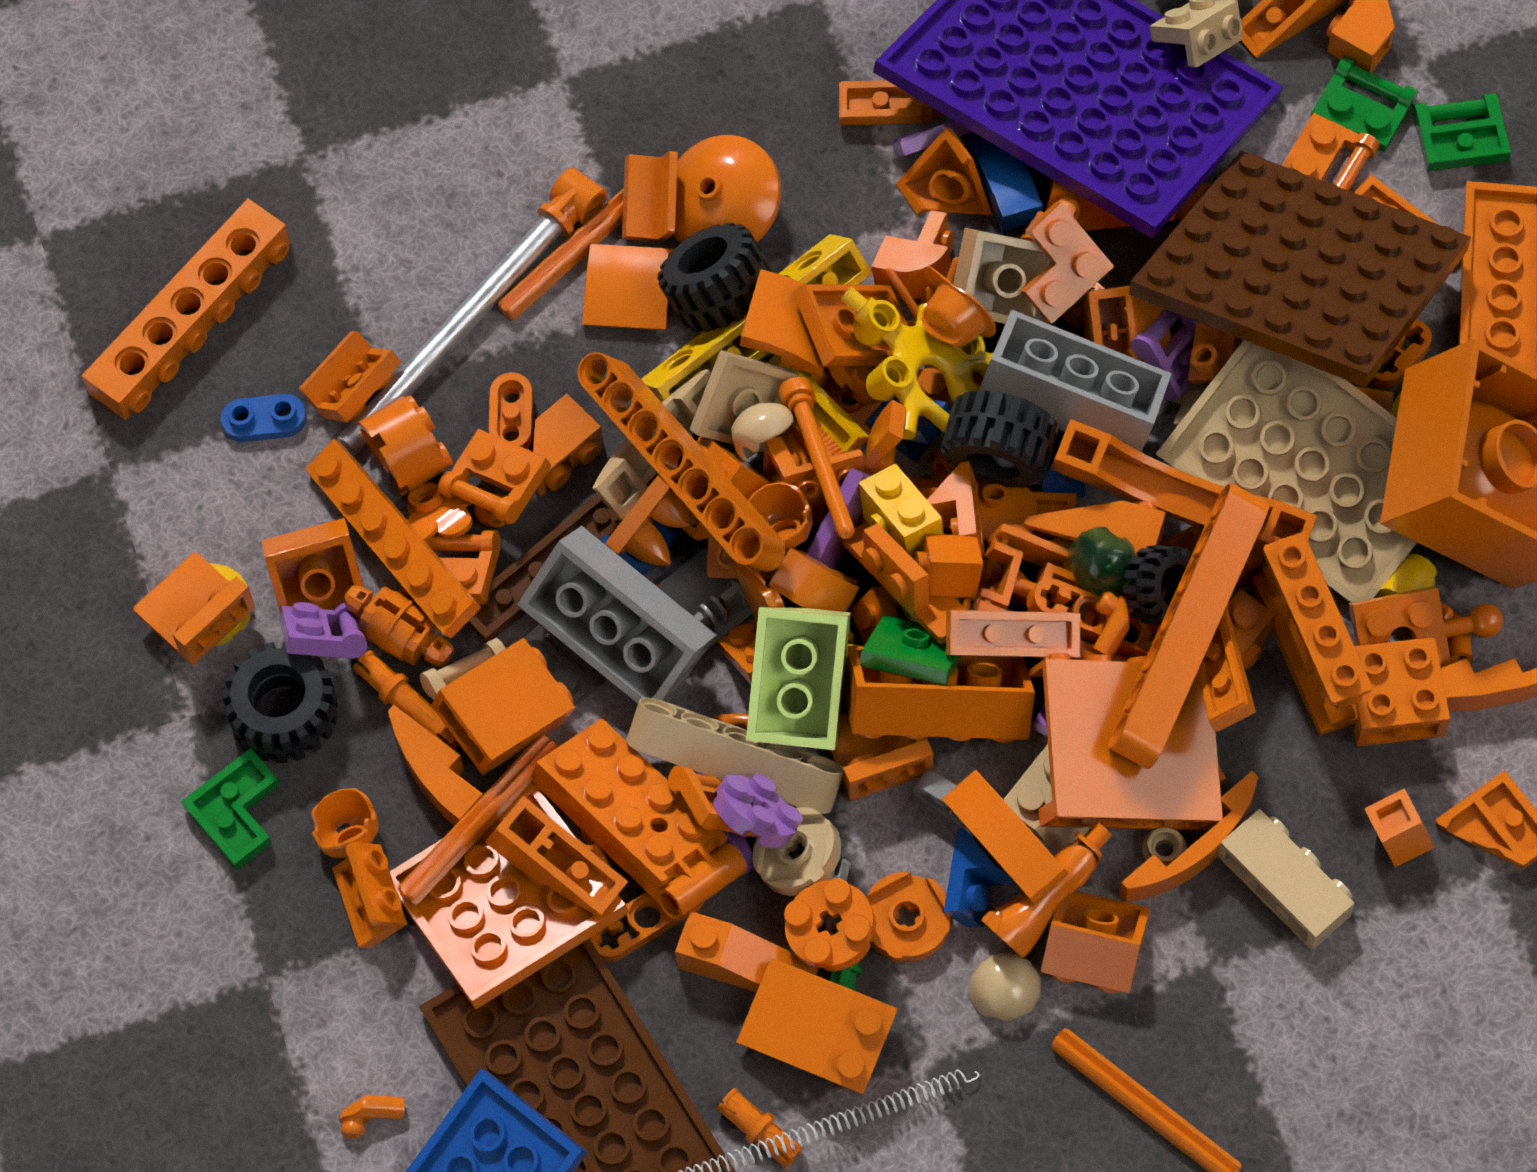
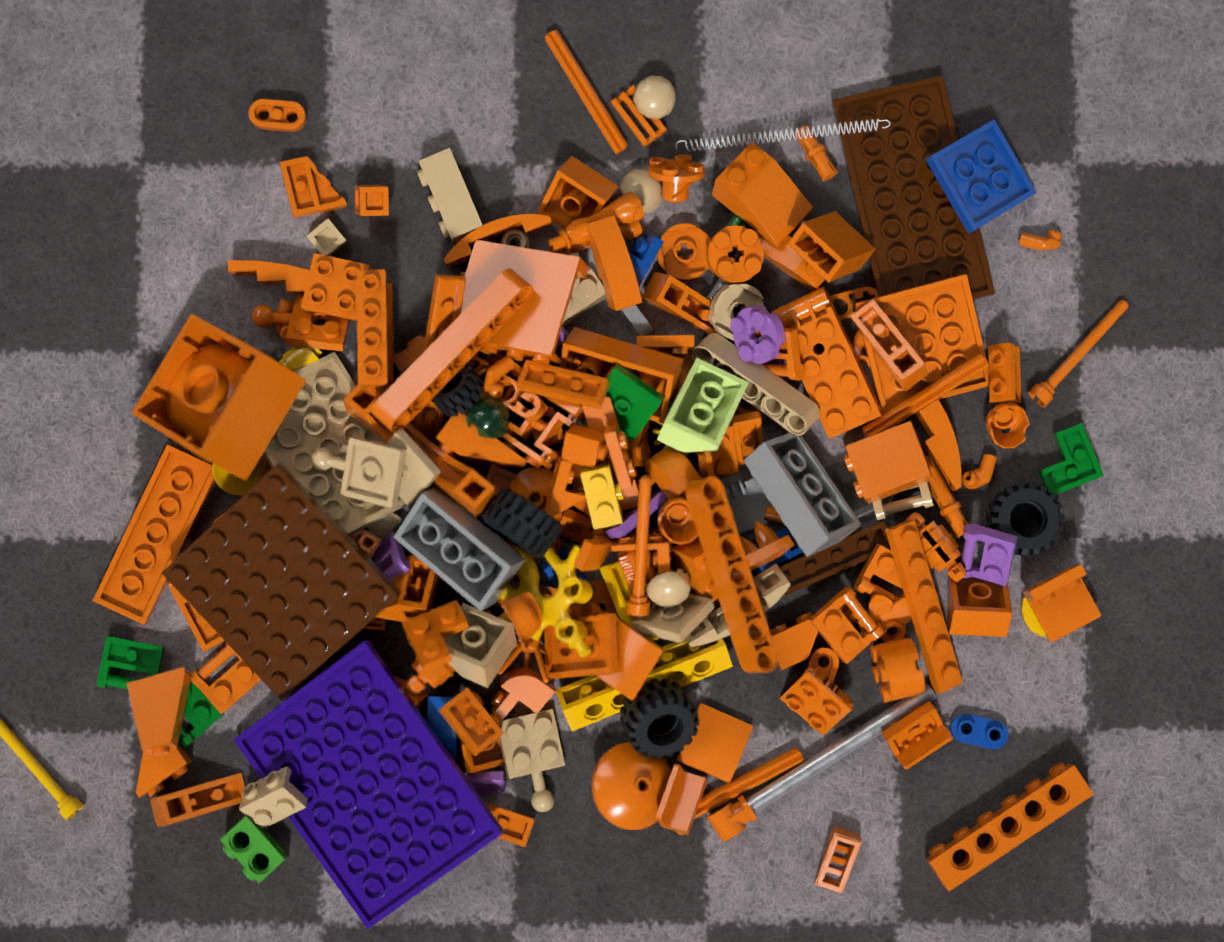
camera: 165 degrees left, 20 degrees up
(303, 893) = (1046, 389): none -> orange piece
(362, 750) = (981, 475): none -> orange arm
(410, 227) = (844, 836): none -> orange slope
(514, 378) = (816, 701): none -> orange hinge
(688, 974) = (831, 246): none -> orange brick
(721, 686) = (747, 434): none -> orange slope
(875, 198) = (530, 747): none -> tan plate
(891, 839) = (679, 301): none -> orange slope
(962, 1017) = (676, 176): none -> orange plate
(969, 188) = (472, 721): none -> orange bracket
(1019, 1075) = (624, 96): none -> orange tile
(1037, 1127) = (654, 97): none -> tan hair
(1190, 459) = (417, 470): none -> tan plate
(1241, 431) = (370, 470): none -> tan plate
(1395, 75) = (159, 709): none -> orange slope
(1443, 761) = (326, 238): none -> tan plate

